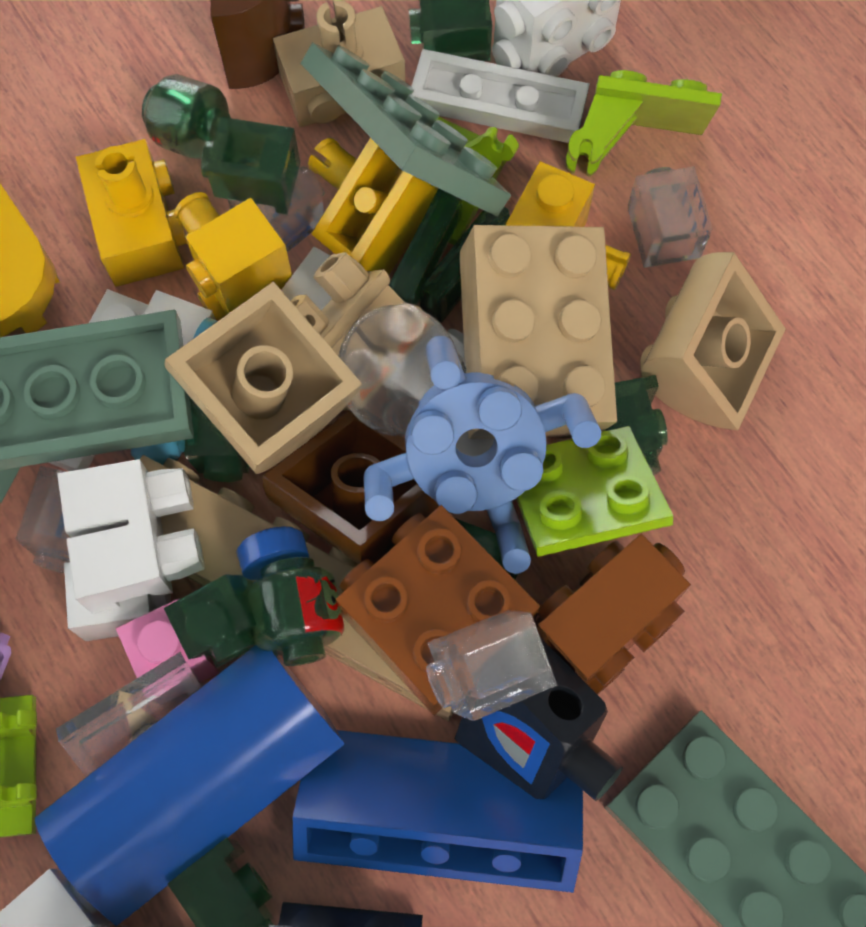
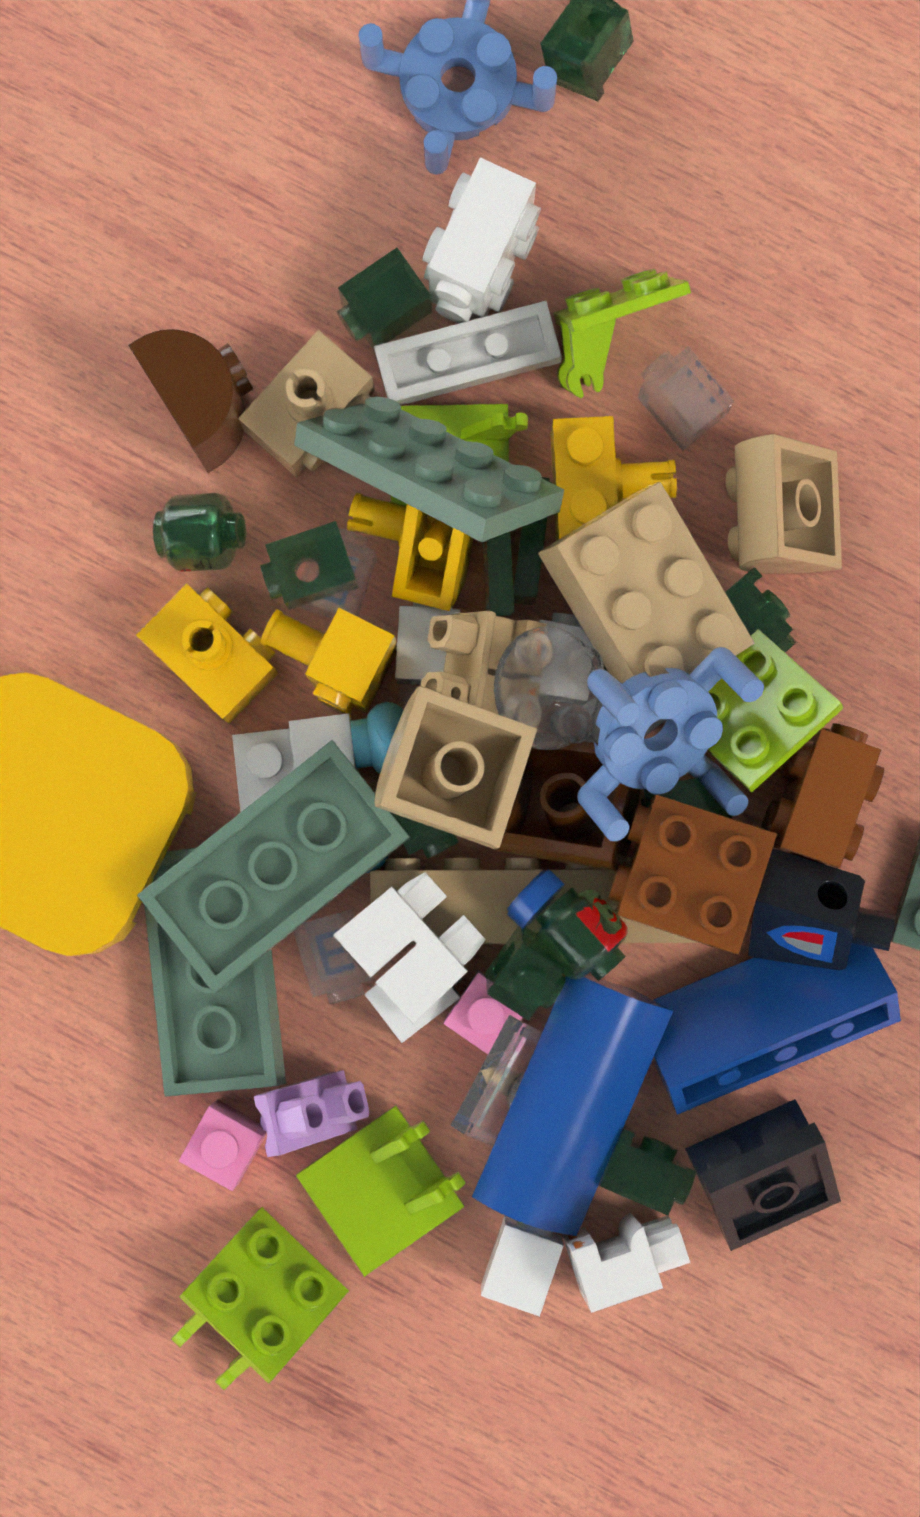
camera: 25 degrees left, 15 degrees up
(489, 665) = (770, 907): clear brick -> none

